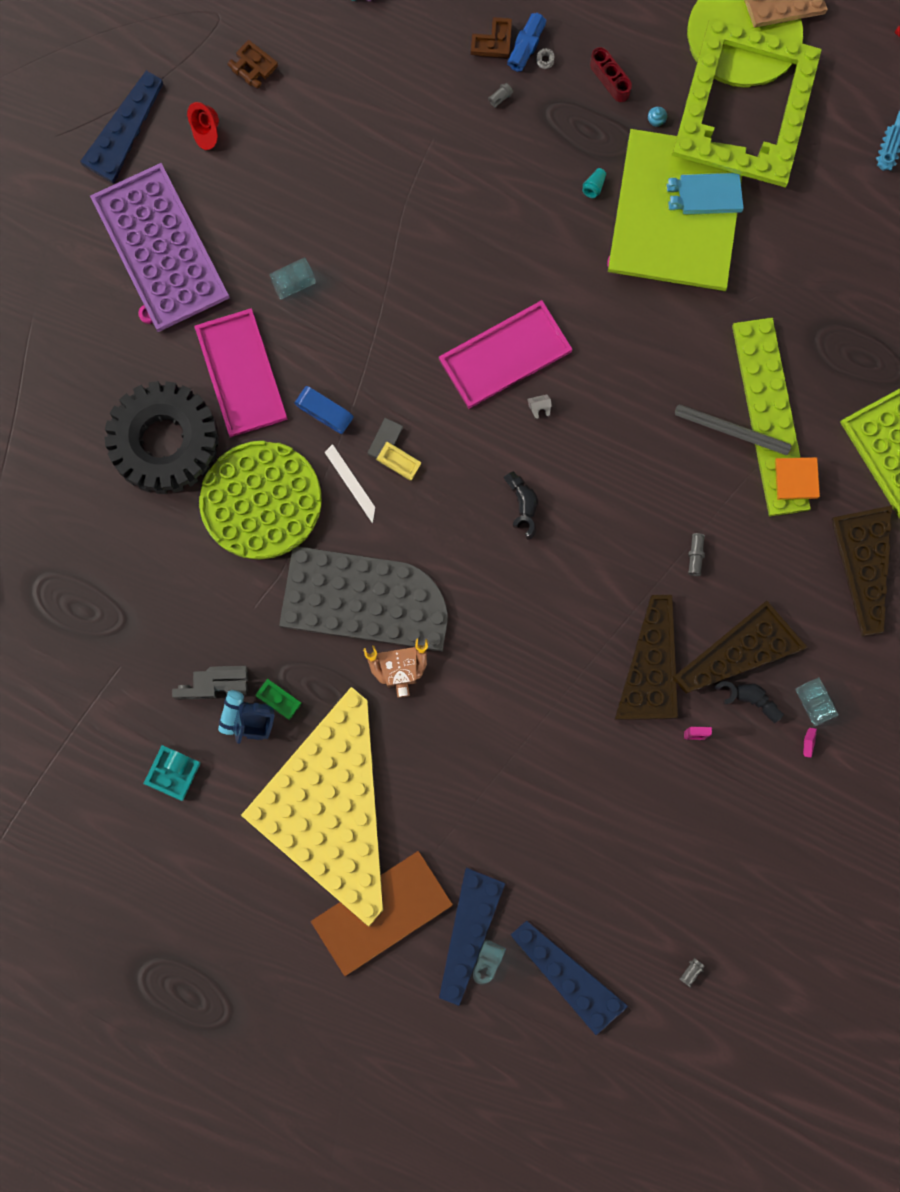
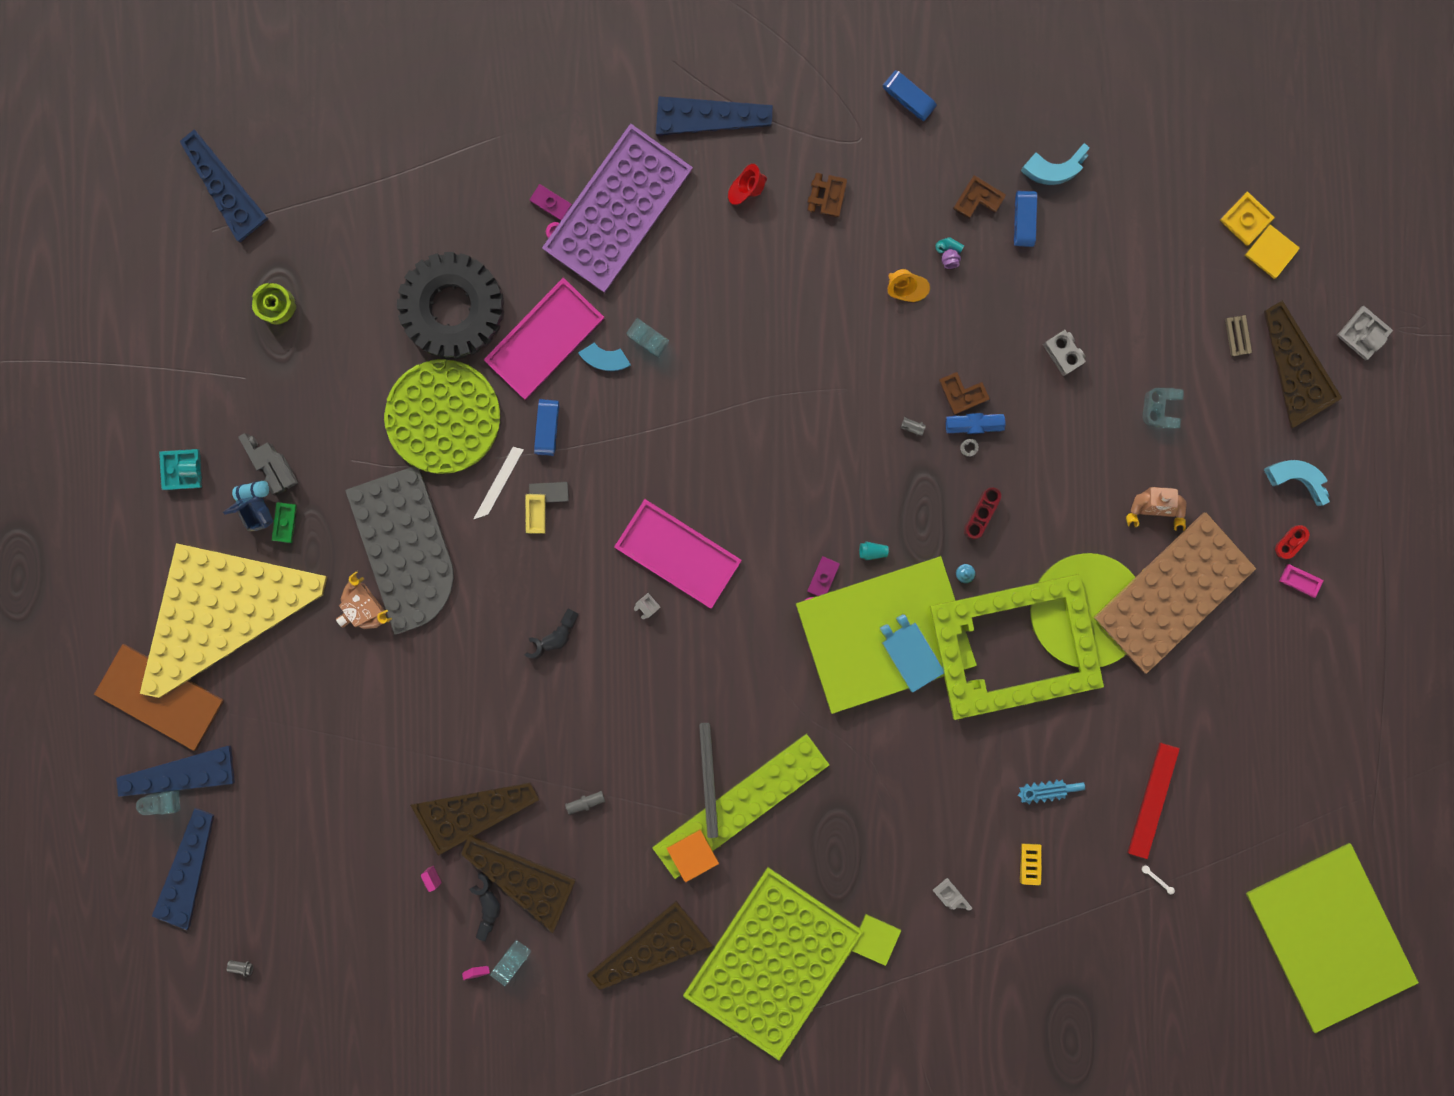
camera: 65 degrees right, 10 degrees up
(56, 591) = (263, 304): none -> lime brick
(119, 303) = (550, 202): none -> magenta plate
(290, 328) = (604, 359): none -> dark azure tile
(372, 36) = (907, 286): none -> light orange piece
(595, 238) = (823, 576): none -> magenta plate

